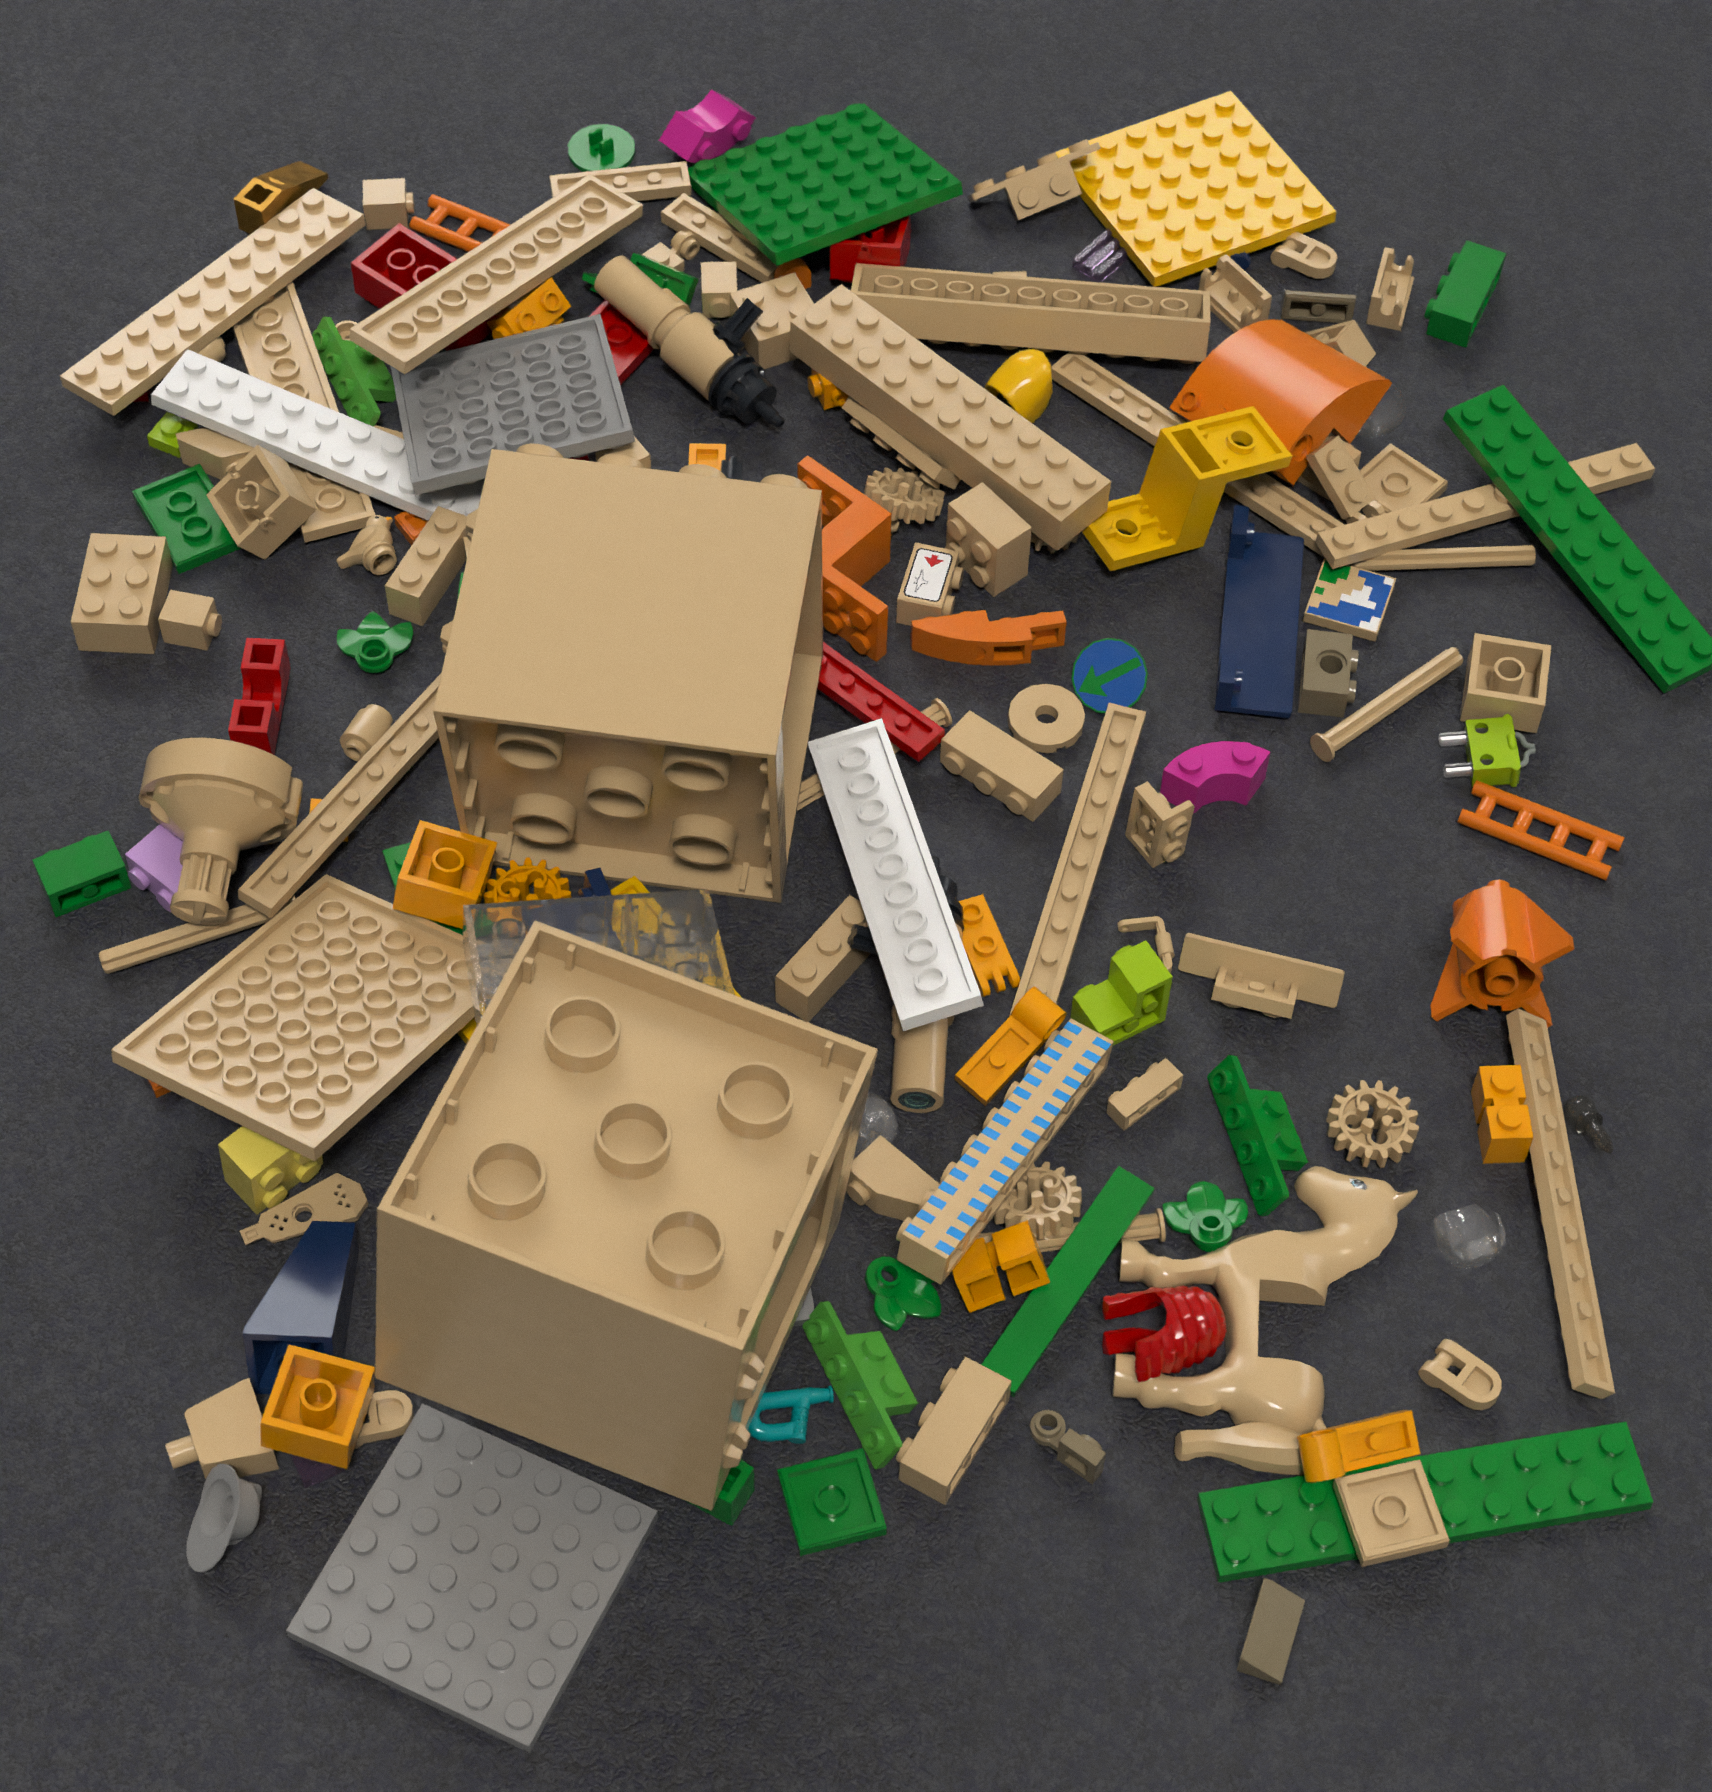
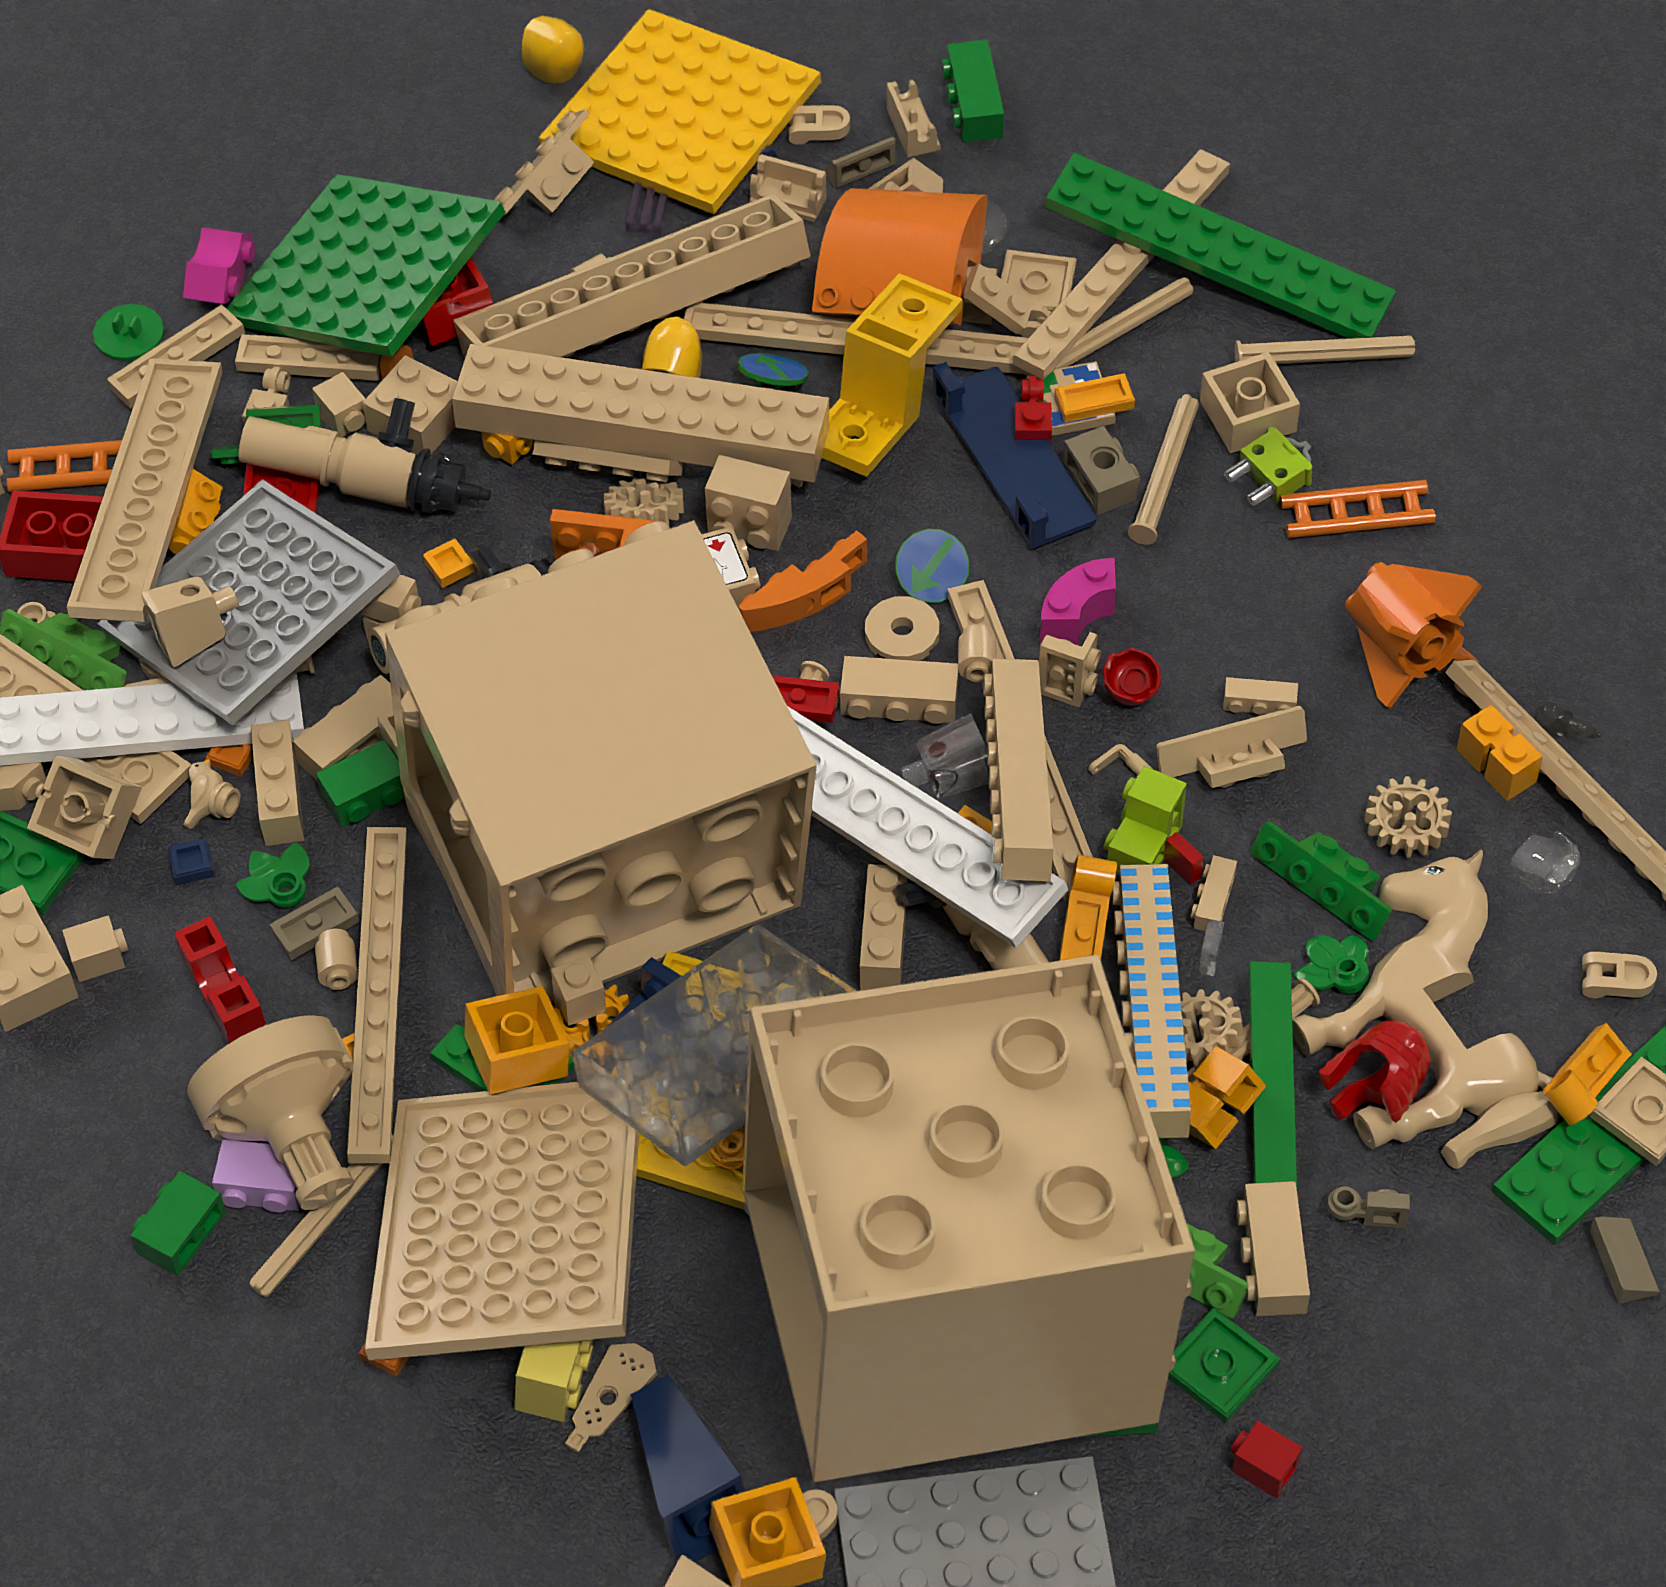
camera: 30 degrees left, 0 degrees up
(320, 593) = (190, 861): none -> dark blue tile
(358, 691) = (301, 928): none -> dark tan plate
(441, 387) = (187, 616): none -> tan torso
(522, 862) = (578, 990): none -> tan brick
(803, 1606) = (1265, 1458): none -> red brick
(996, 848) = (950, 759): none -> clear torso
(1025, 882) = (1018, 770): none -> tan brick
(1085, 769) = (976, 652): none -> tan brick
(1101, 441) = (773, 370): none -> piece
(1103, 1136) = (1211, 947): none -> clear tile
(1118, 84) = (552, 49): none -> yellow piece
(1138, 1046) = (1183, 858): none -> red tile
(1212, 864) = (1131, 677): none -> red hair
(1300, 598) = (1033, 418): none -> red plate
(1319, 944) = (1258, 696): none -> tan piece
(1368, 608) = (1094, 398): none -> light orange tile
(1622, 677) = (1329, 349): none -> tan axle

